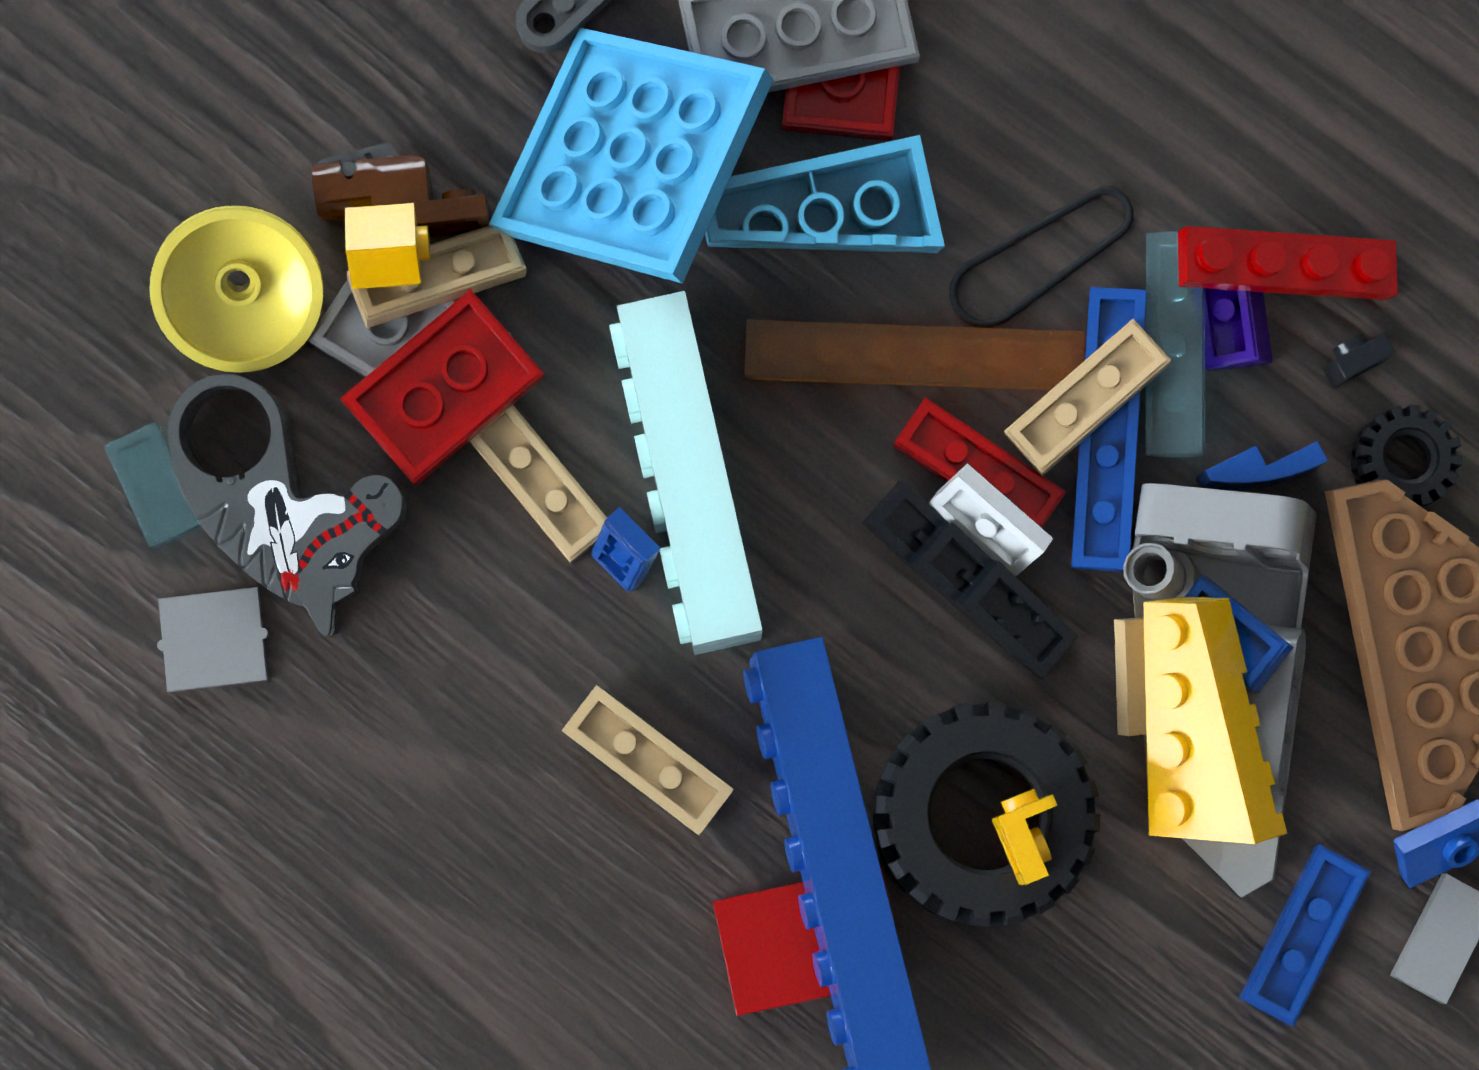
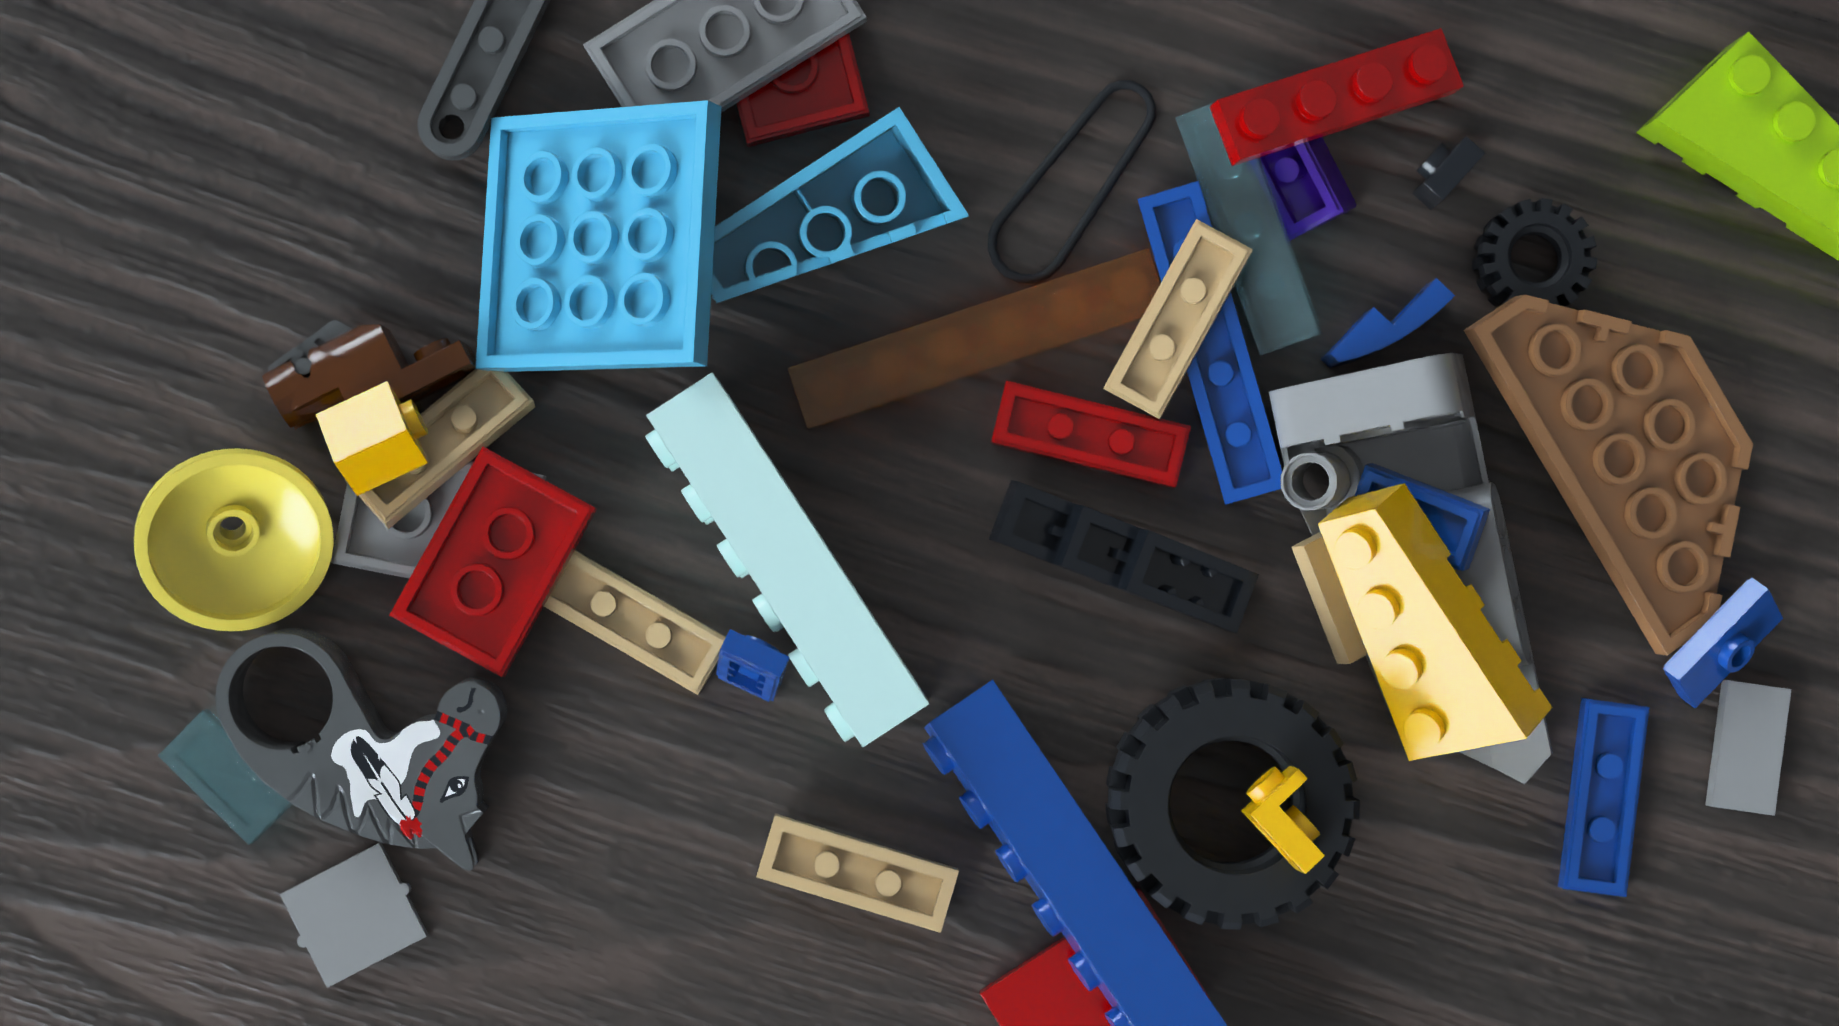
camera: 25 degrees left, 5 degrees up
(990, 520) = (1123, 488): white plate -> none

